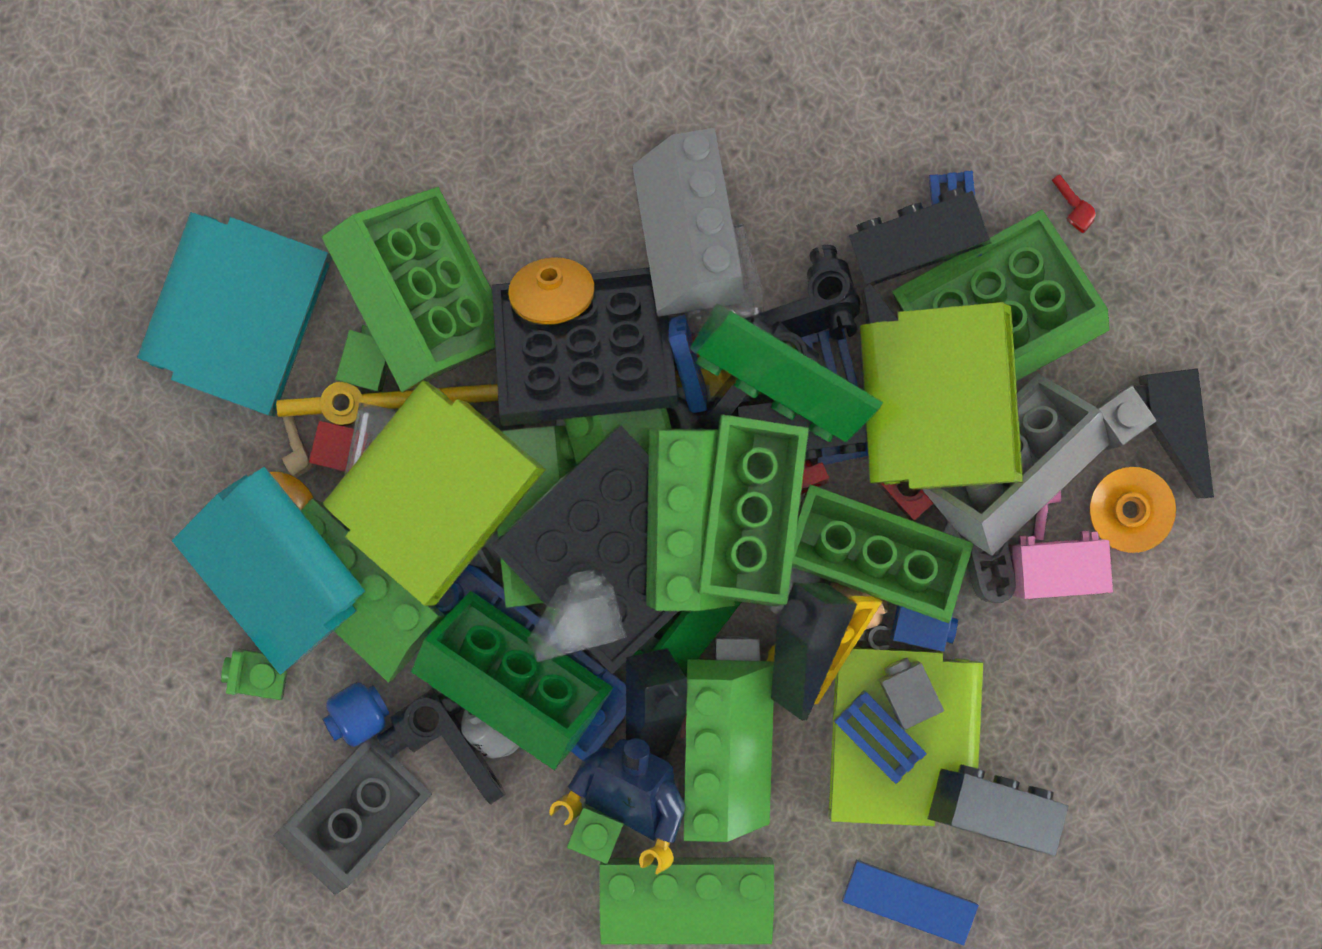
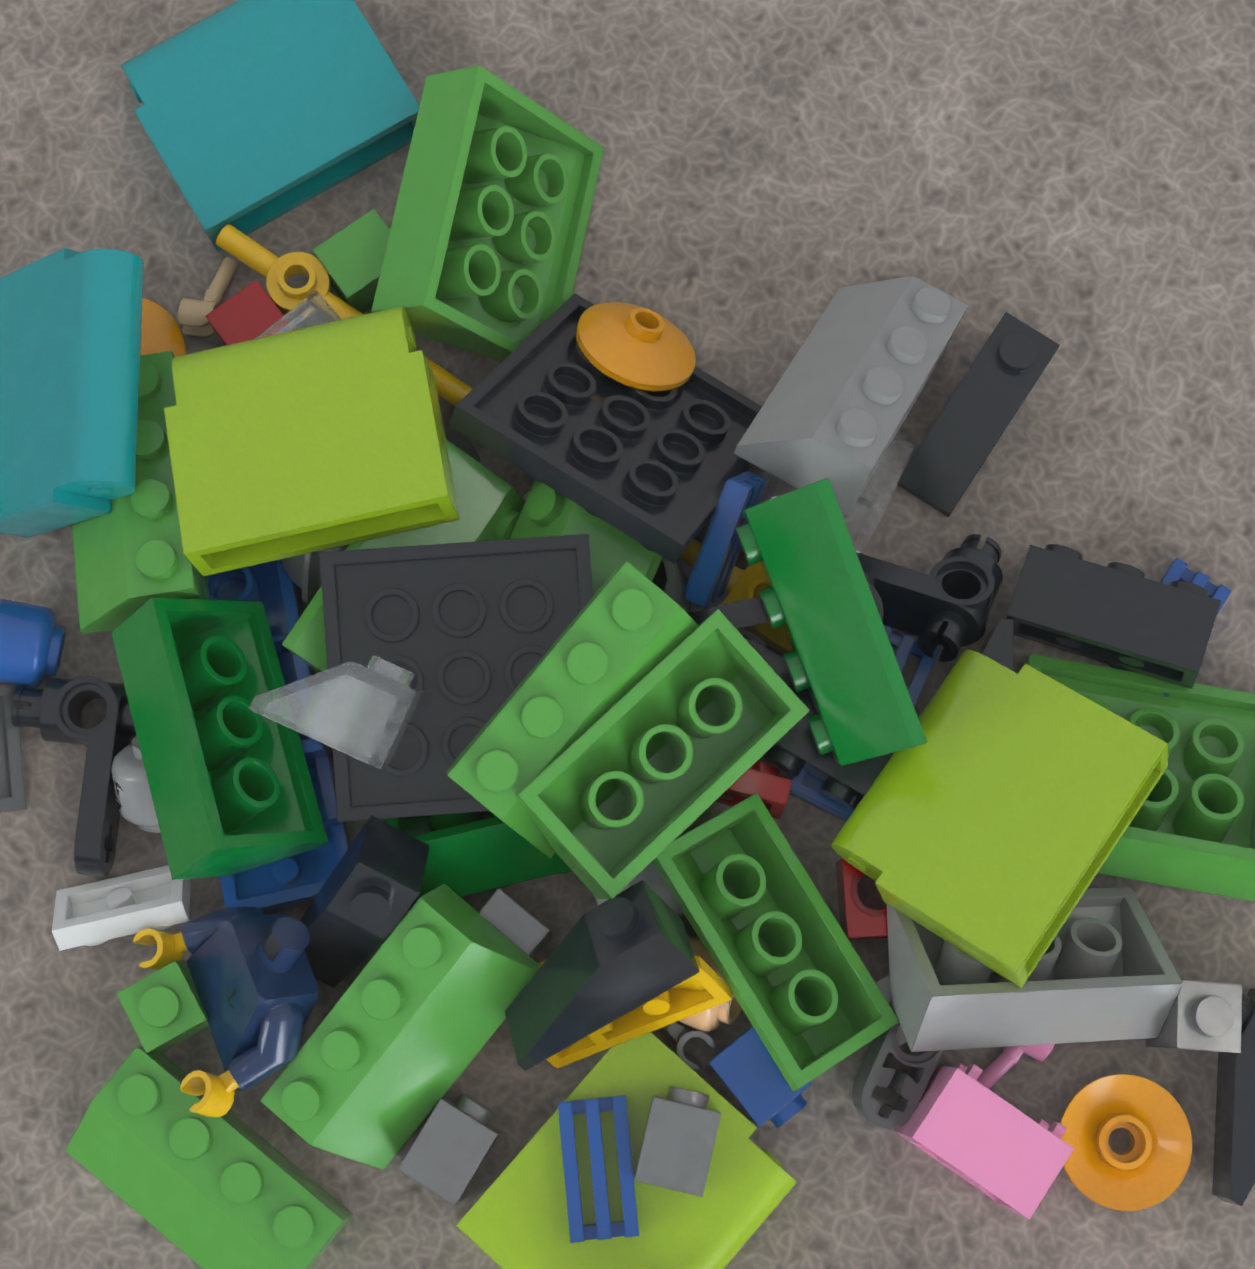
camera: 40 degrees right, 10 degrees down
(526, 803) = (119, 907): none -> white plate
(764, 181) = (977, 414): none -> black slope
(796, 785) = (451, 1147): none -> flat silver brick

